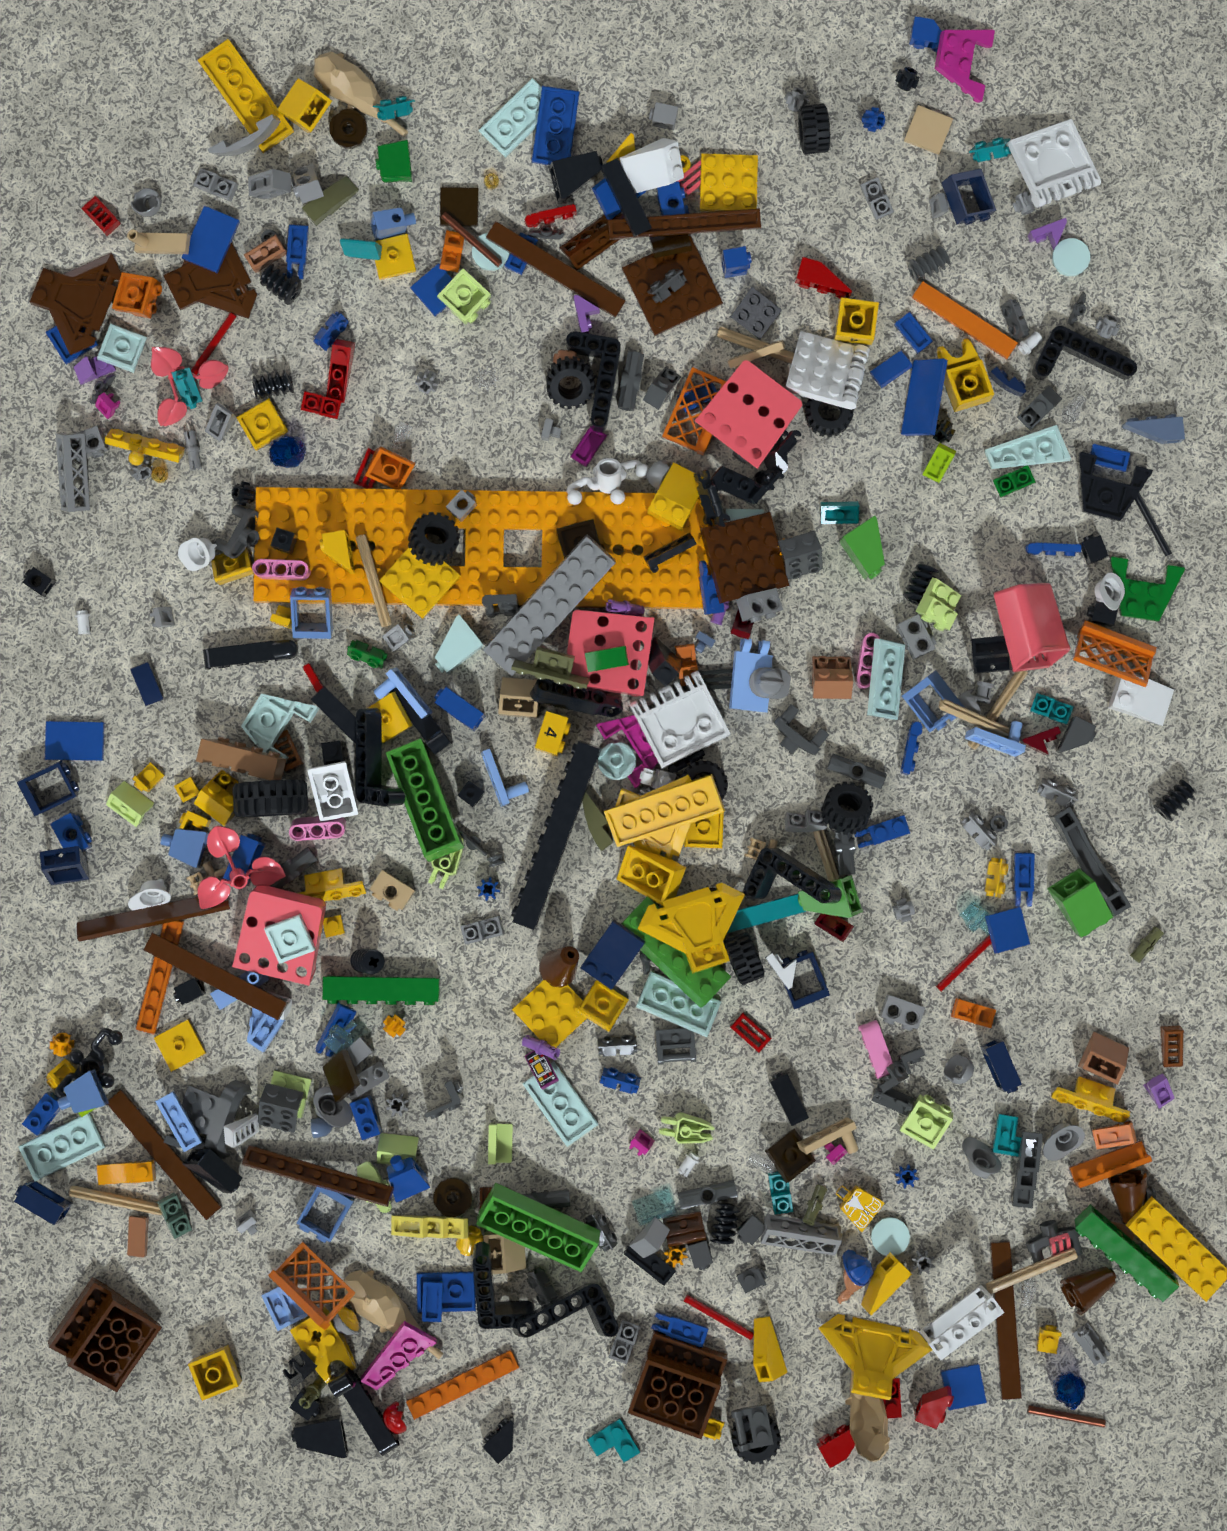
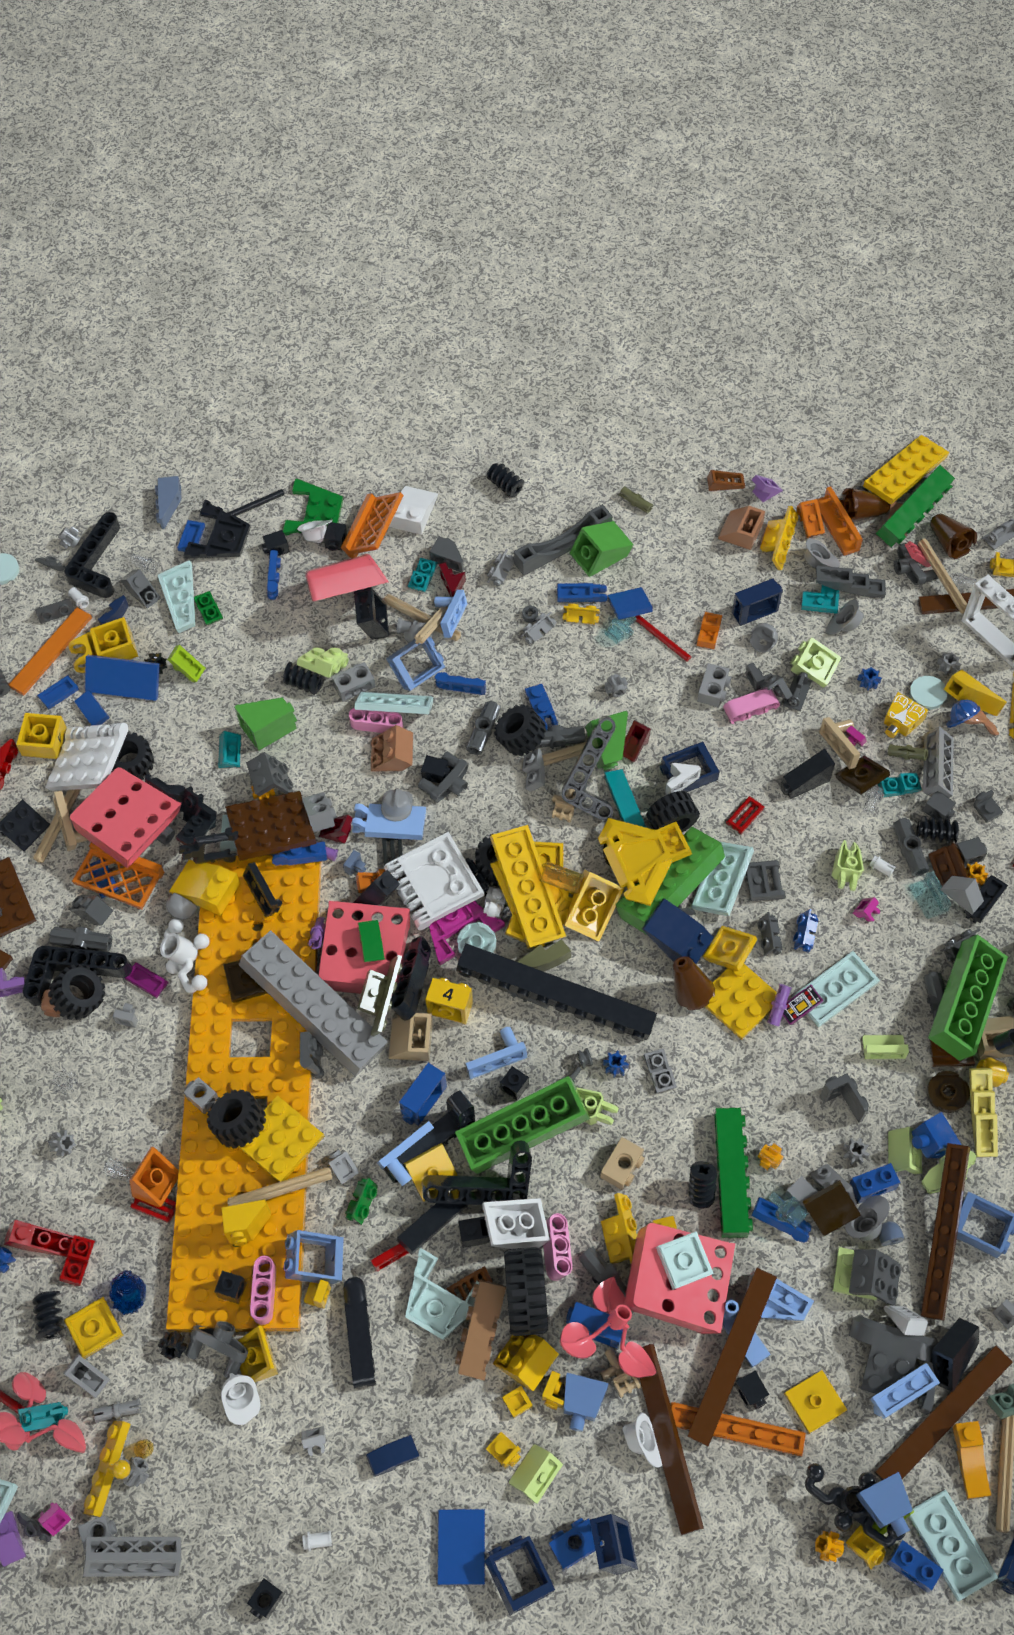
camera: 85 degrees left, 25 degrees down
(457, 646) = (354, 1103): light aqua slope -> none
(673, 844) = (561, 877): none -> clear yellow panel
(808, 722) = (435, 769): none -> black brick

